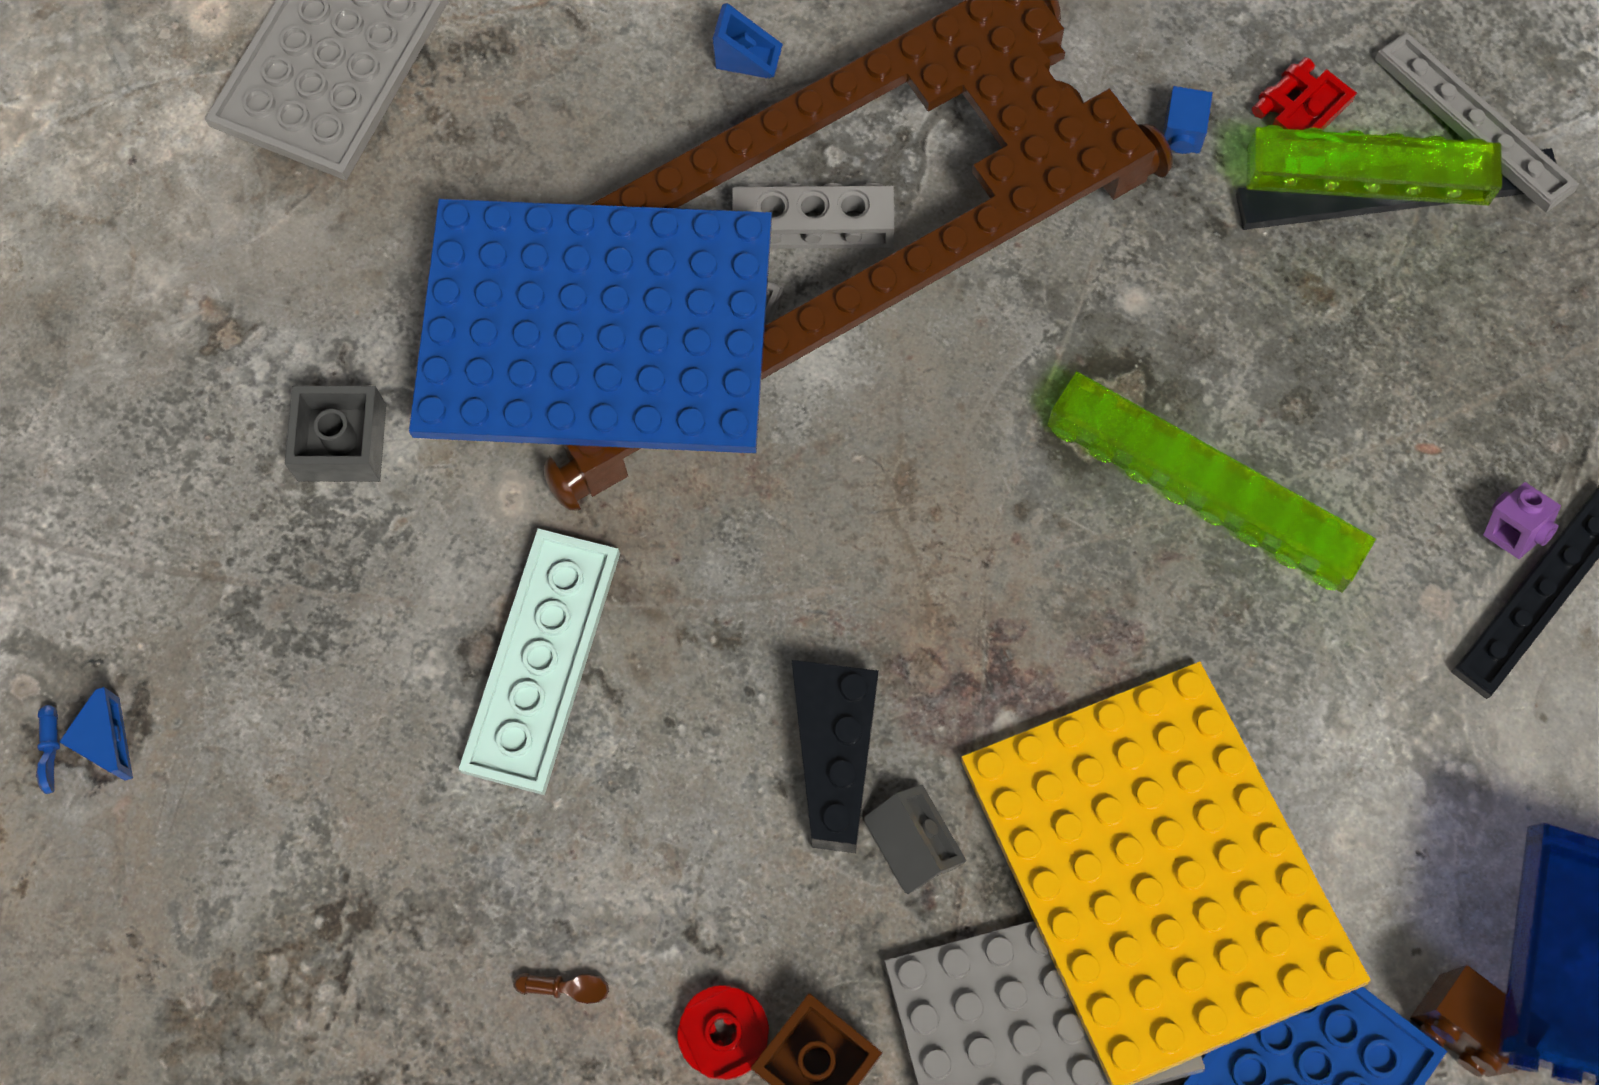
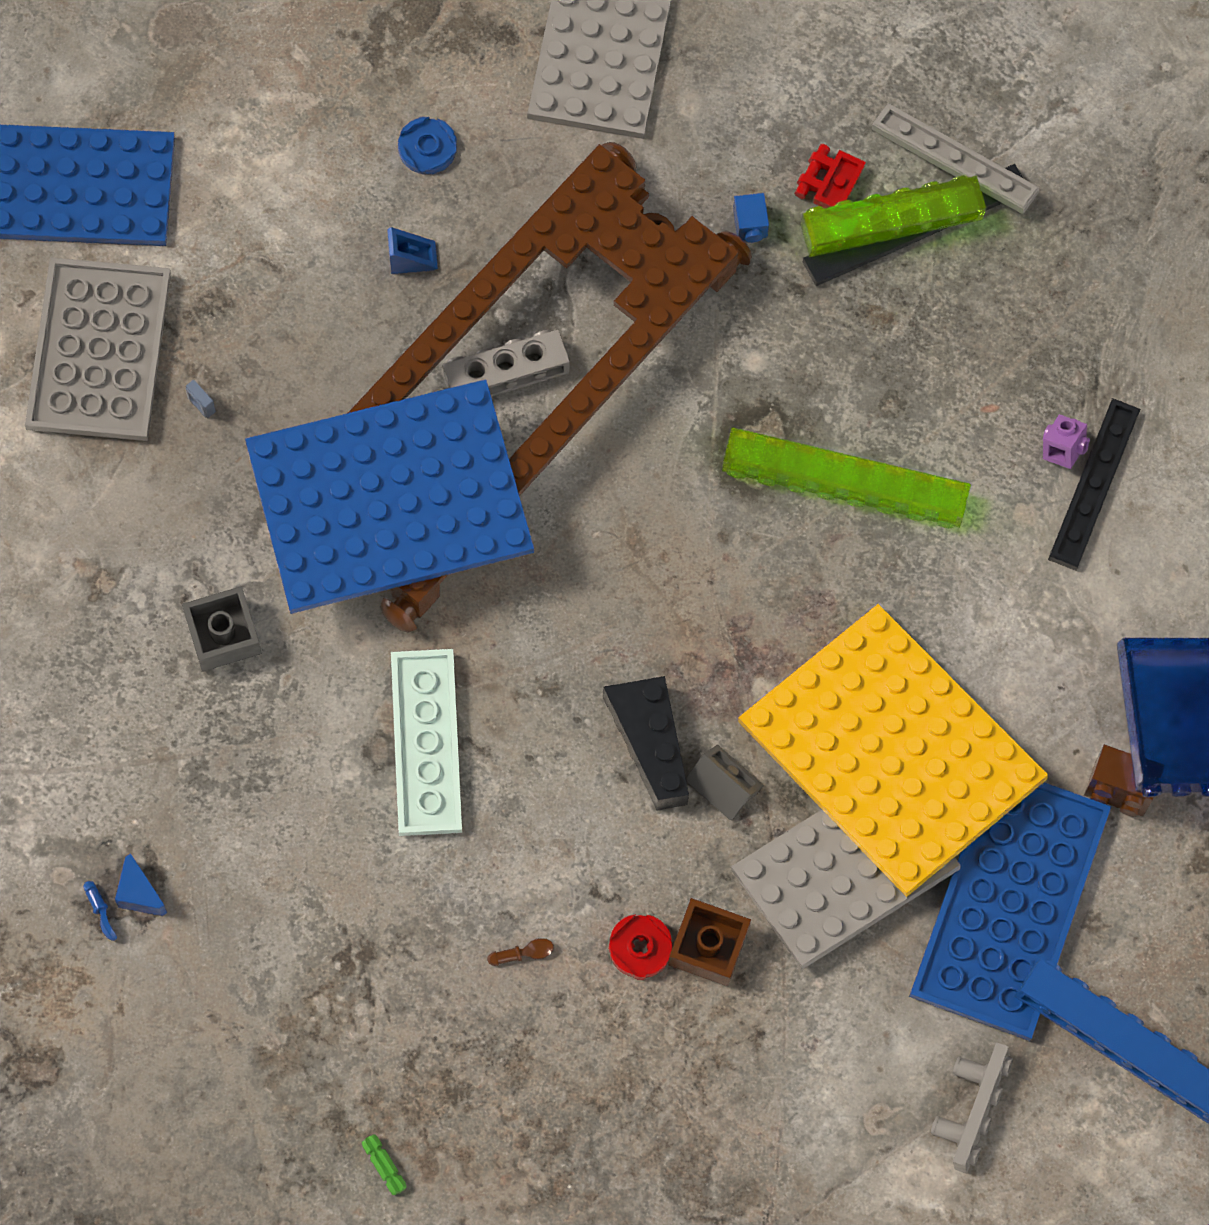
camera: 25 degrees left, 0 degrees up
(425, 147) = (200, 399): none -> sand blue tile

